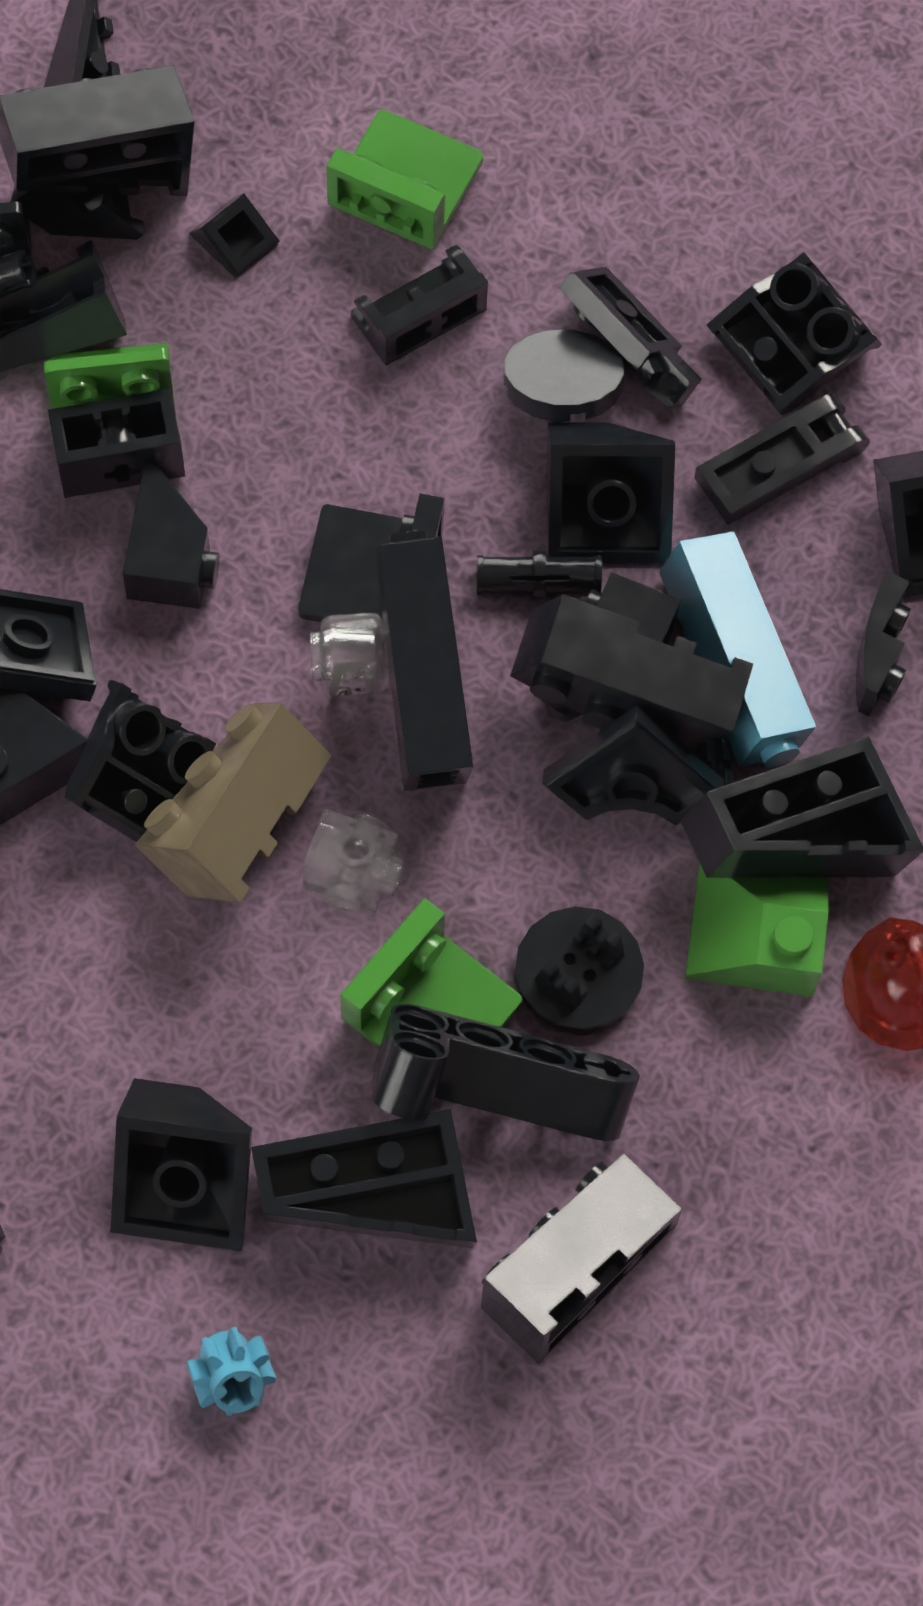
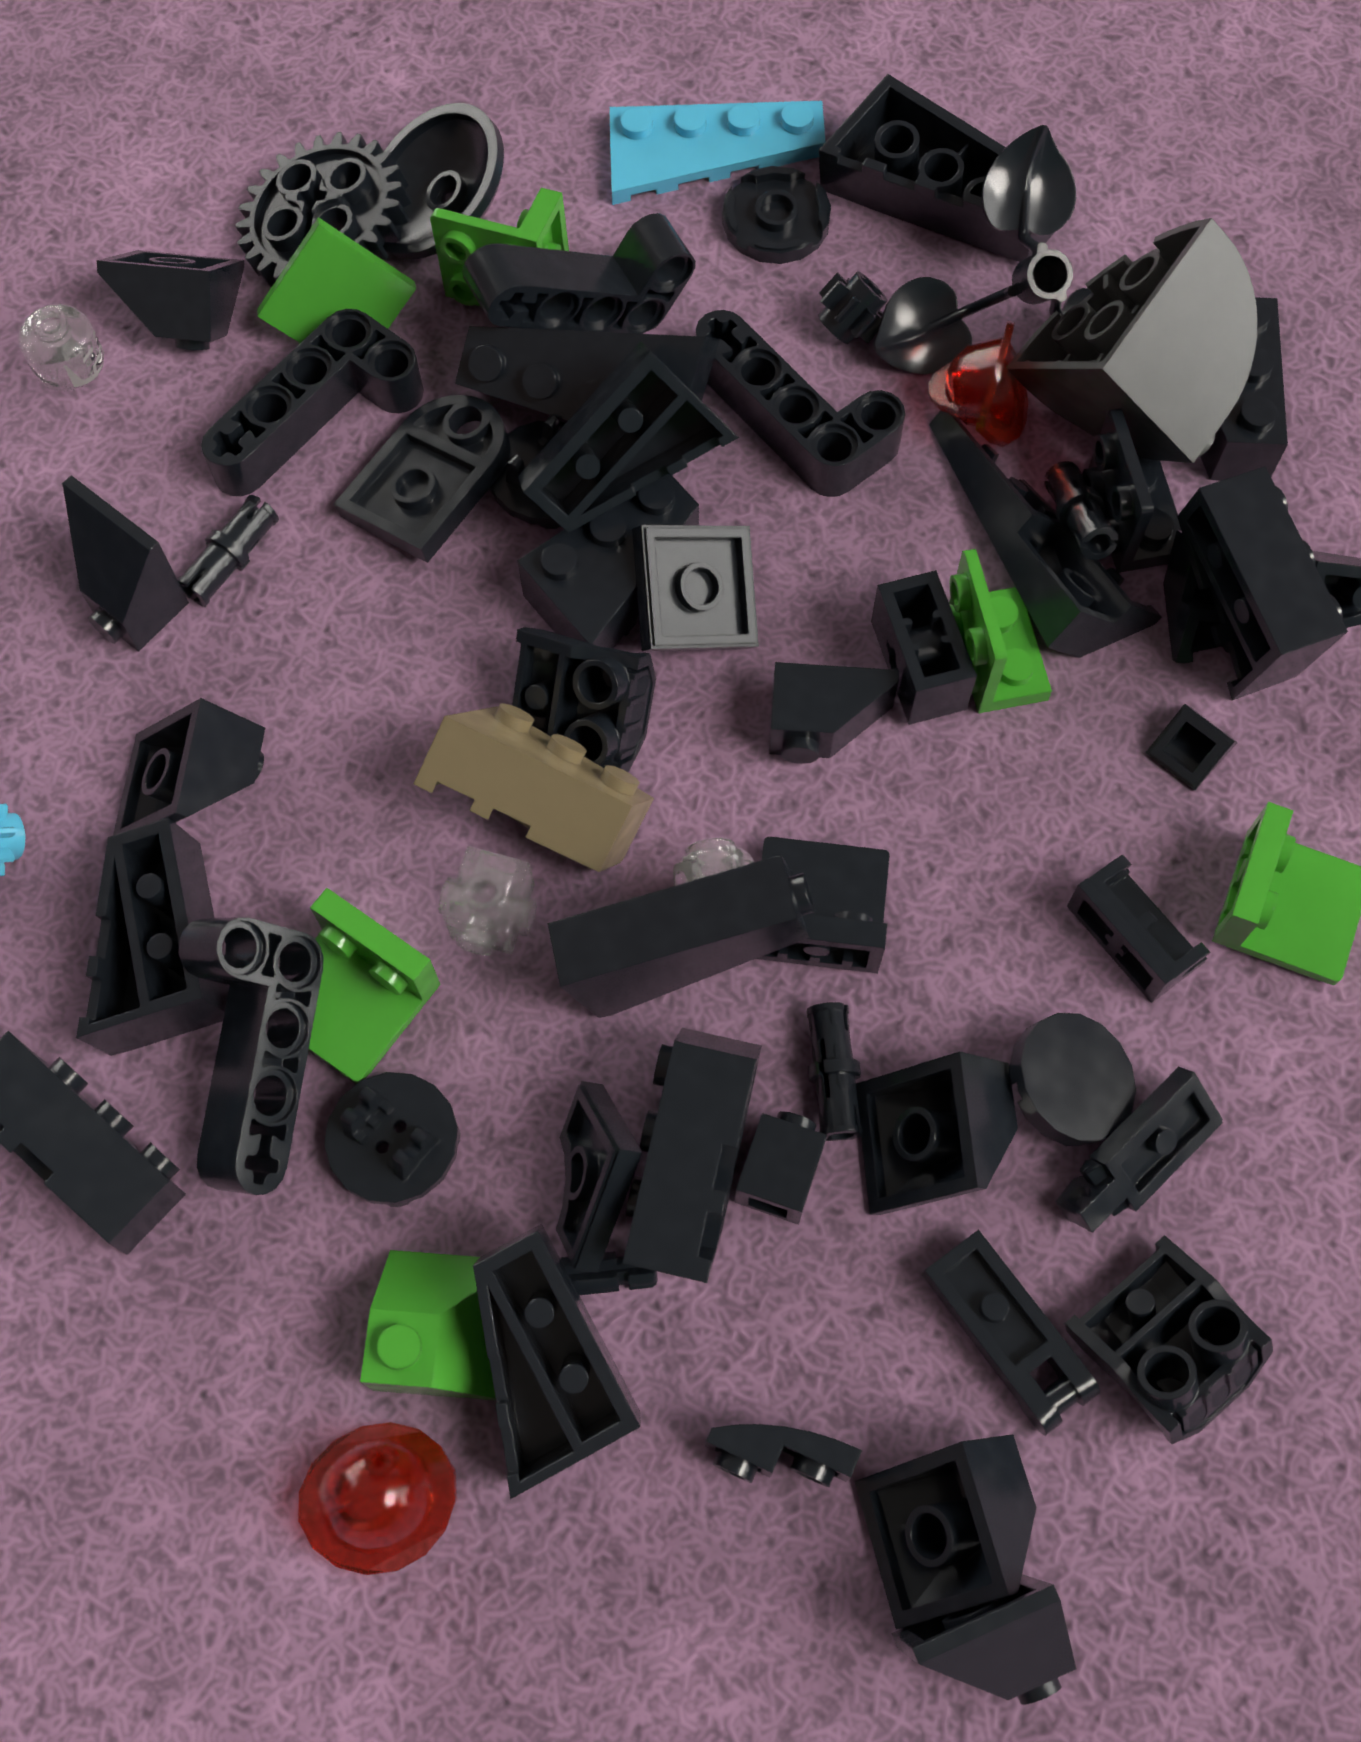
camera: 90 degrees right, 0 degrees up
(729, 620) = (757, 1285): medium azure brick -> none

